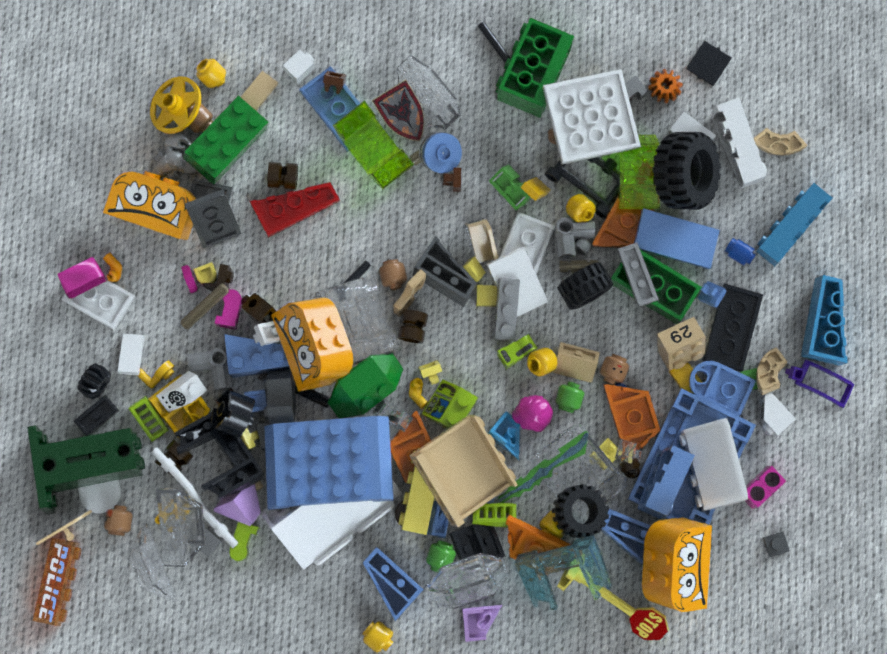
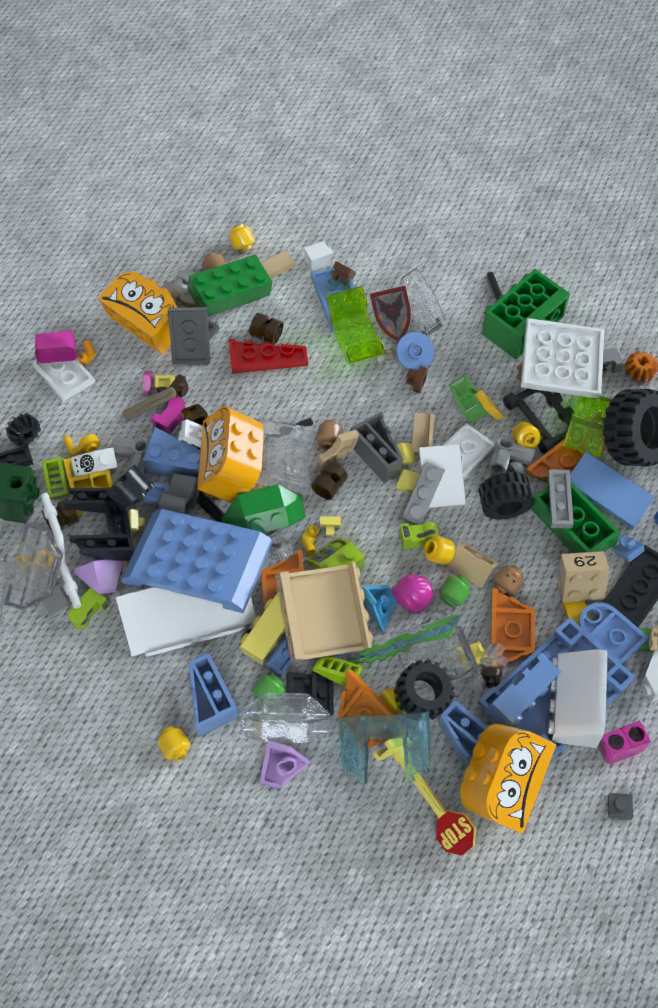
camera: 25 degrees right, 20 degrees down
(131, 354) = (66, 422): white tile -> none
(175, 105) = (199, 248): yellow wheel -> none

